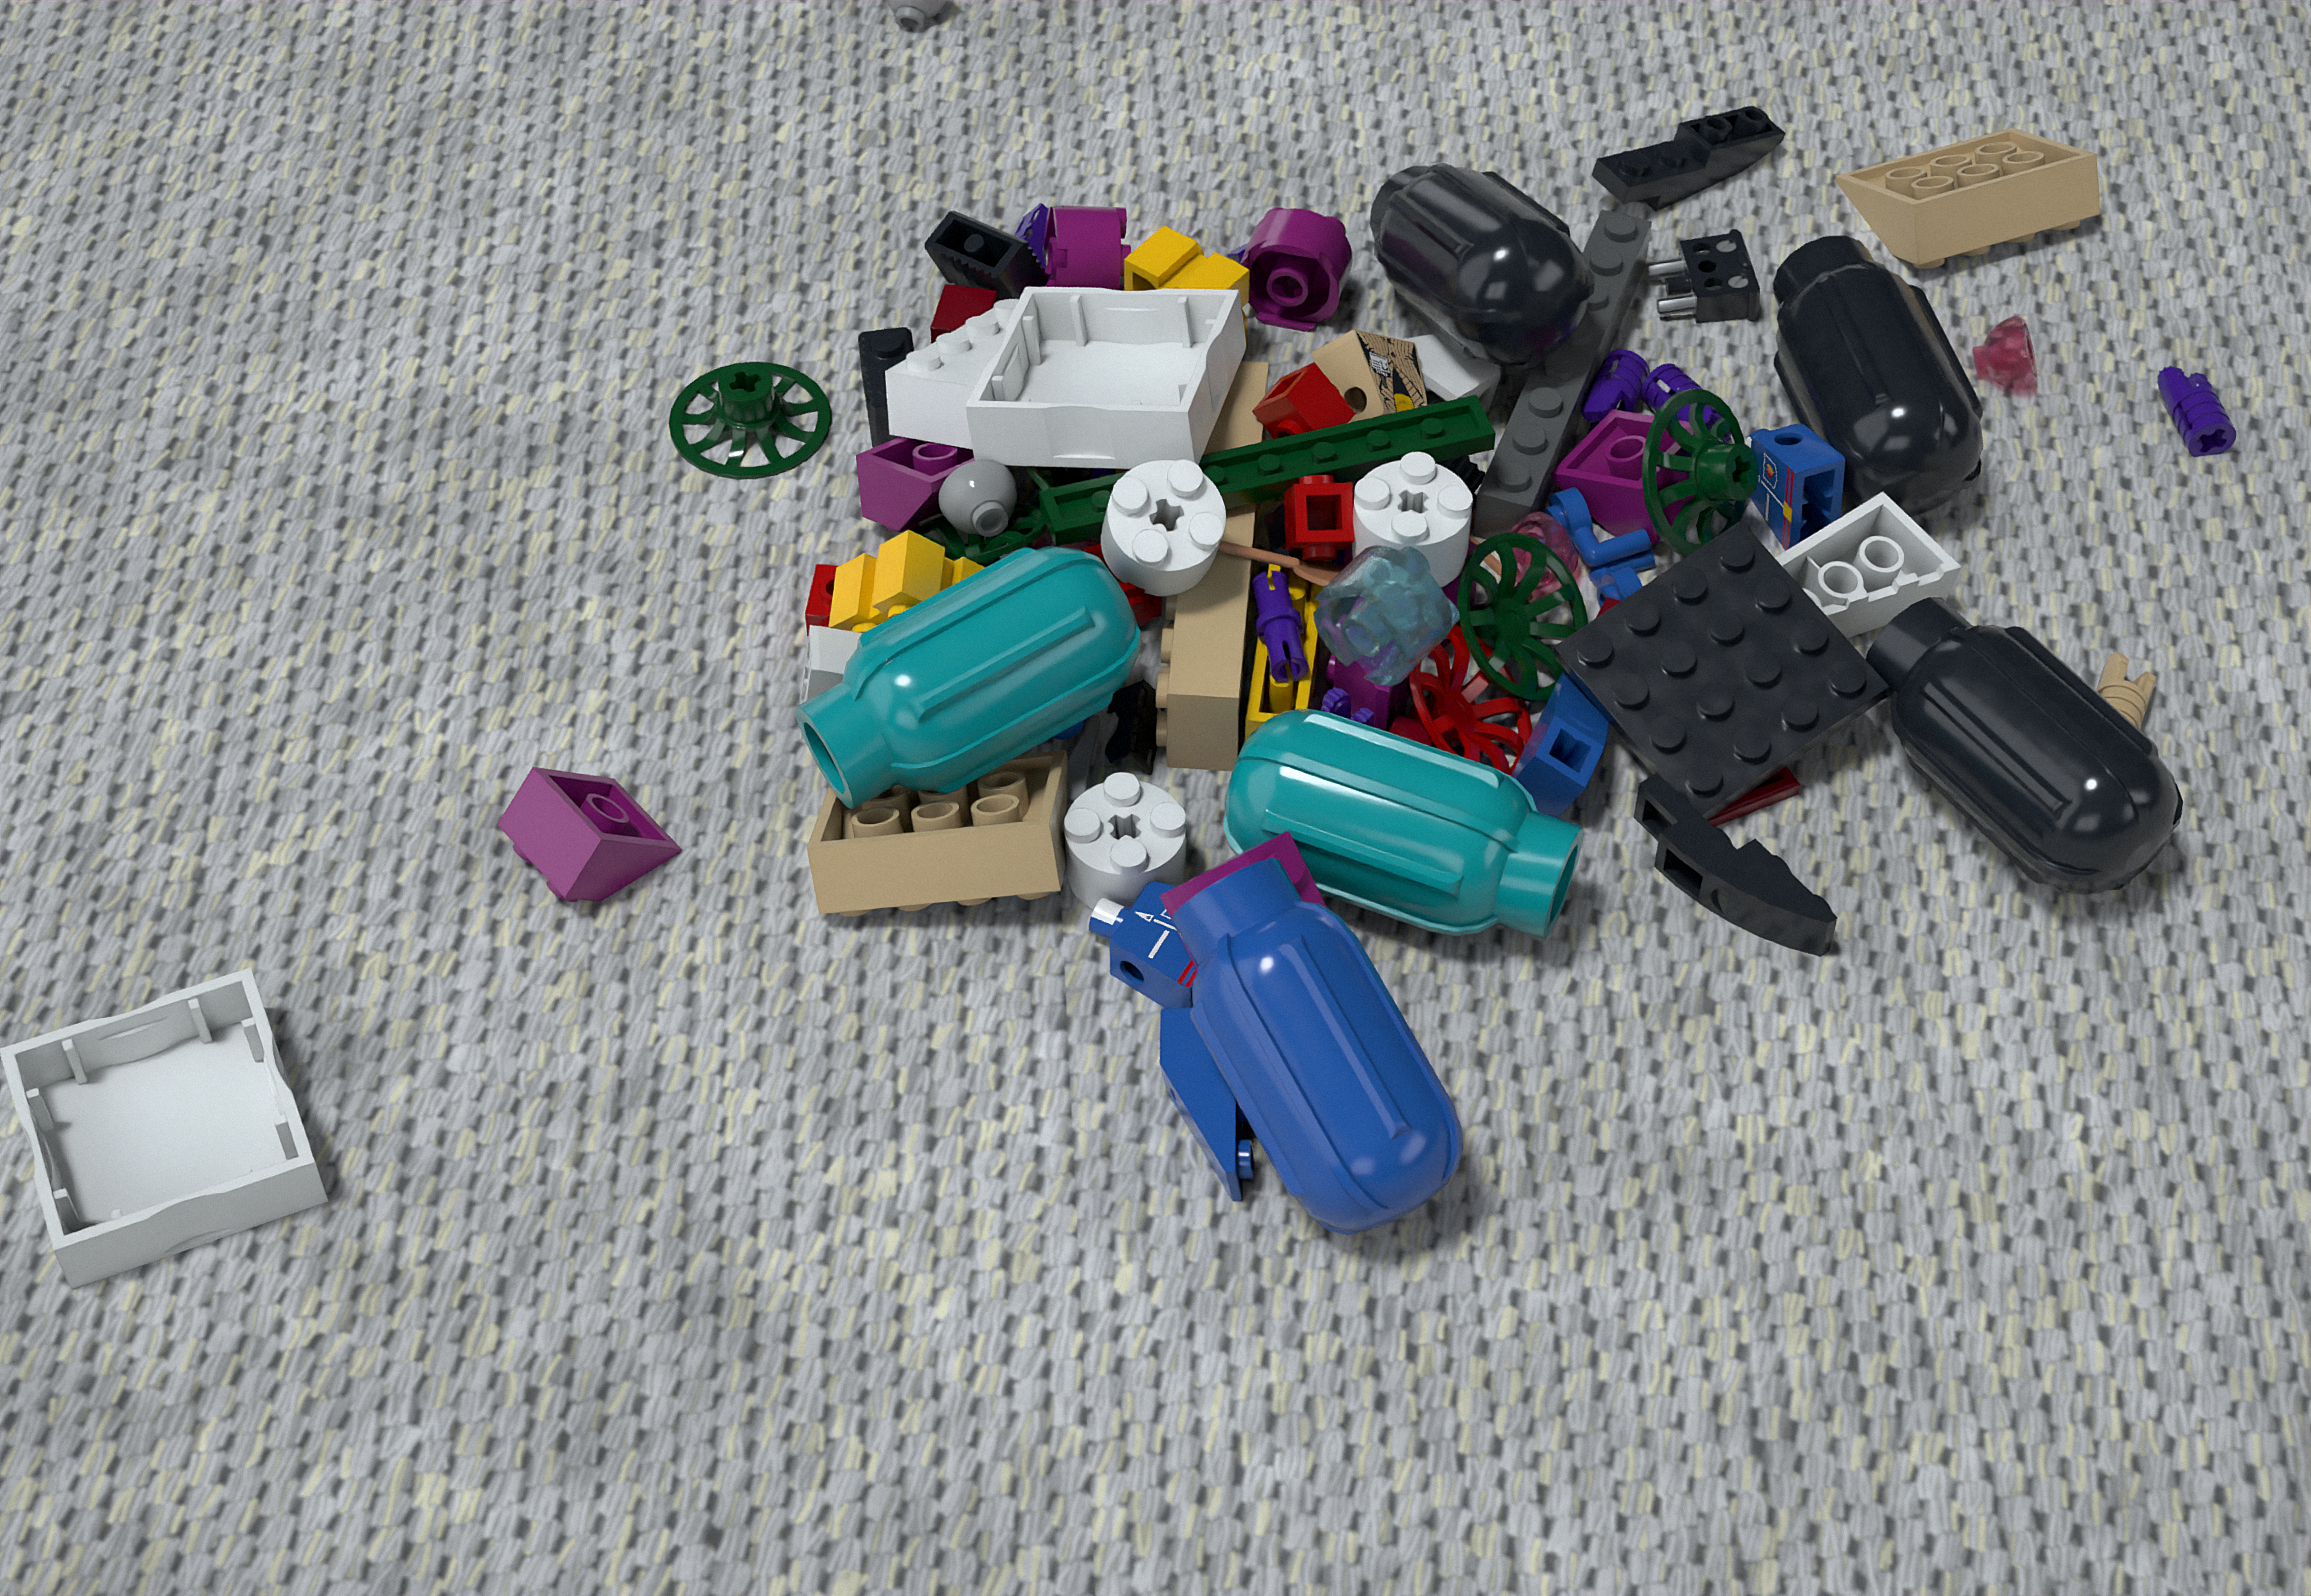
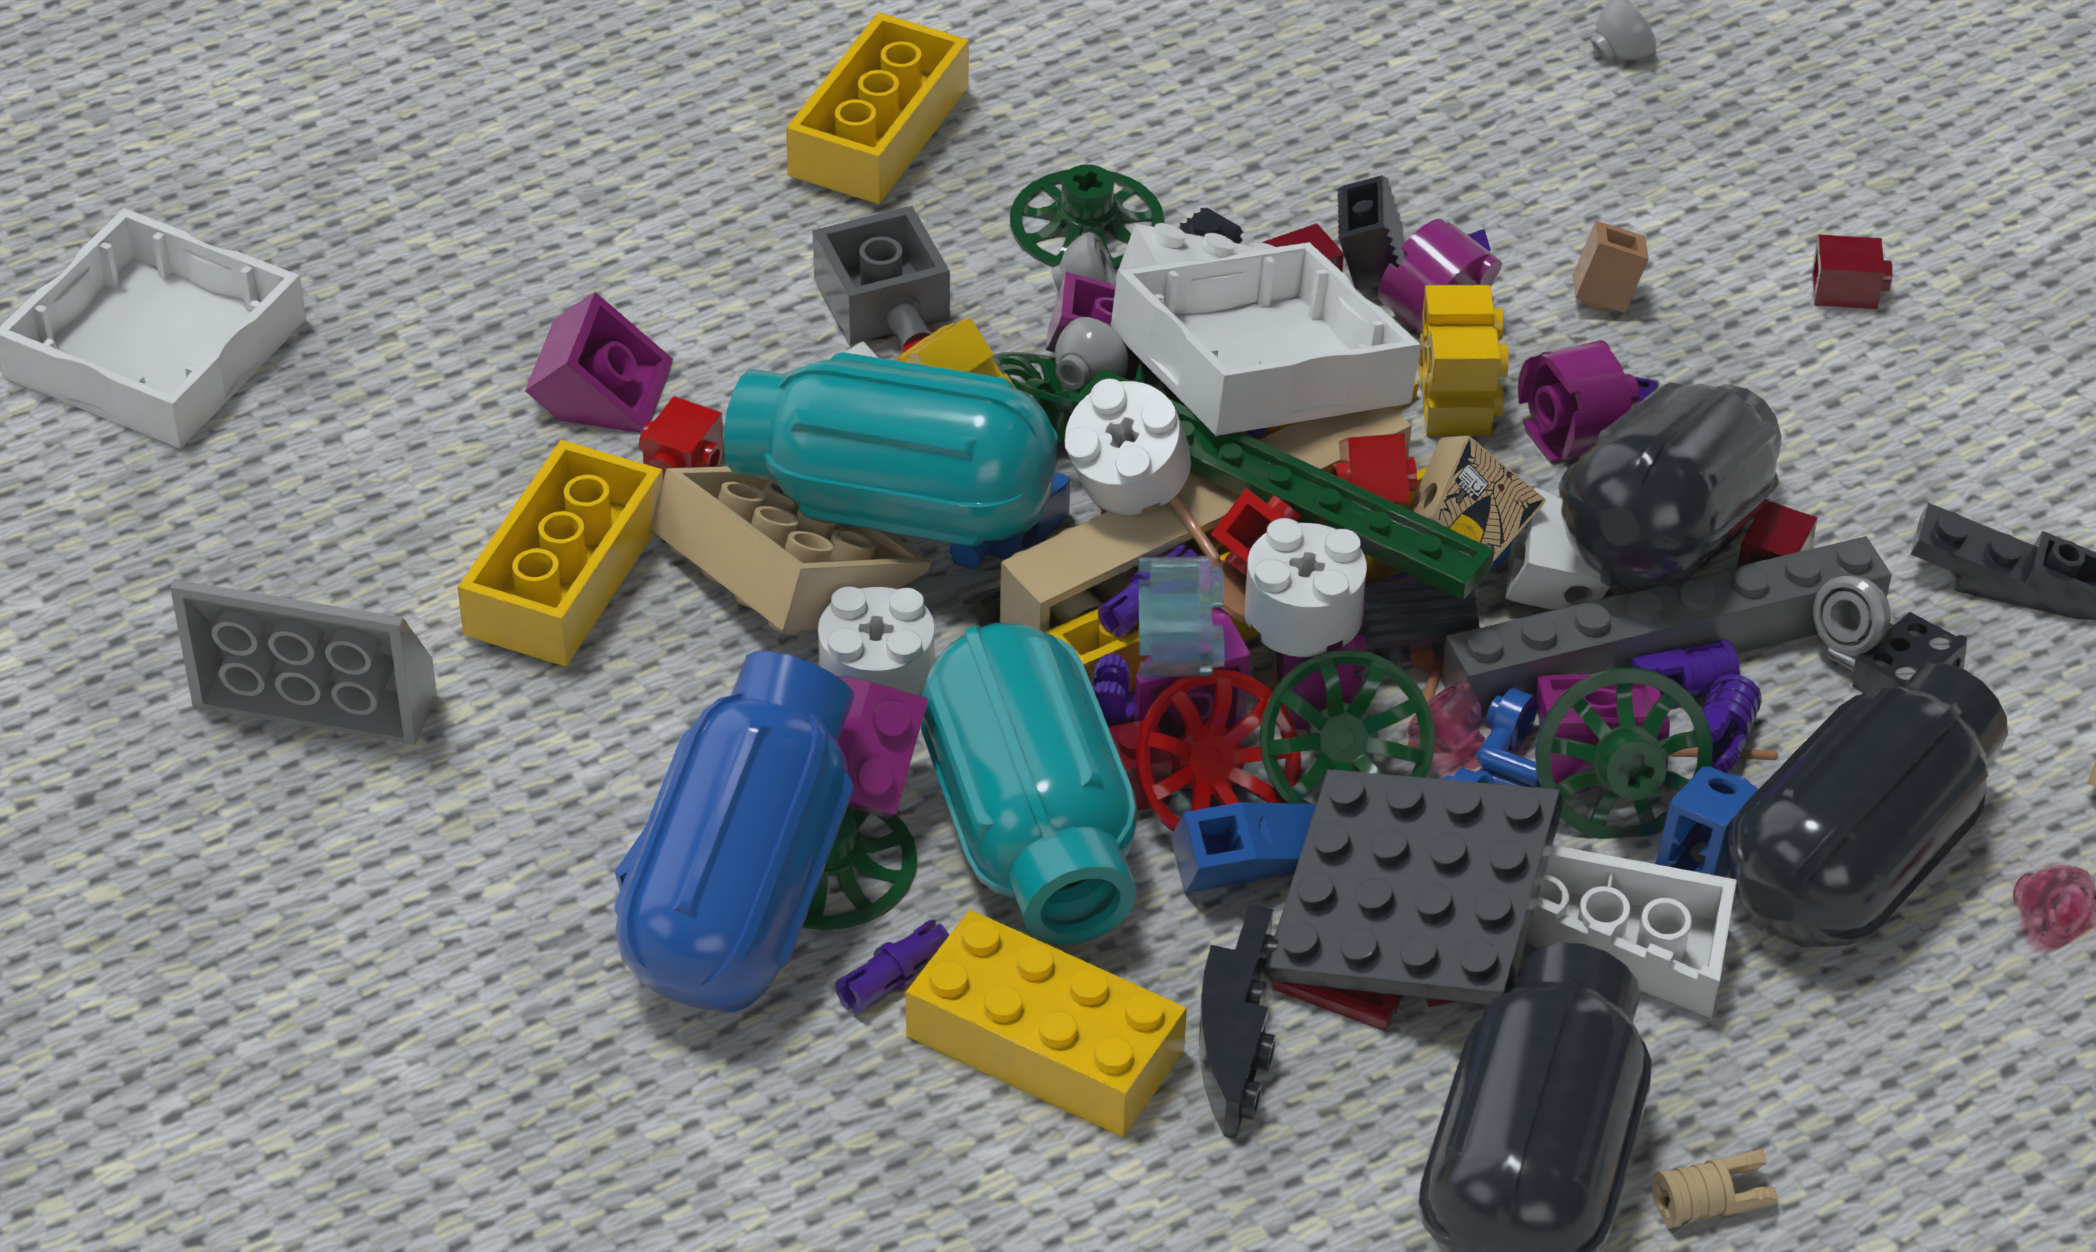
camera: 50 degrees right, 5 degrees down
(490, 456) = (877, 108): none -> yellow brick
(702, 579) = (882, 276): none -> dark grey brick
(742, 830) = (683, 437): none -> red brick
(764, 1257) = (303, 662): none -> light grey slope
(799, 988) = (561, 553): none -> yellow brick
(824, 452) = (1086, 258): none -> light grey brick
(1169, 162) = (1610, 267): none -> medium nougat brick
(1301, 50) = (1849, 272): none -> dark red brick
(1475, 1053) = (891, 967): none -> dark purple pin
(1634, 988) = (1046, 1022): none -> yellow brick
(1667, 269) = (1851, 615): none -> light grey brick

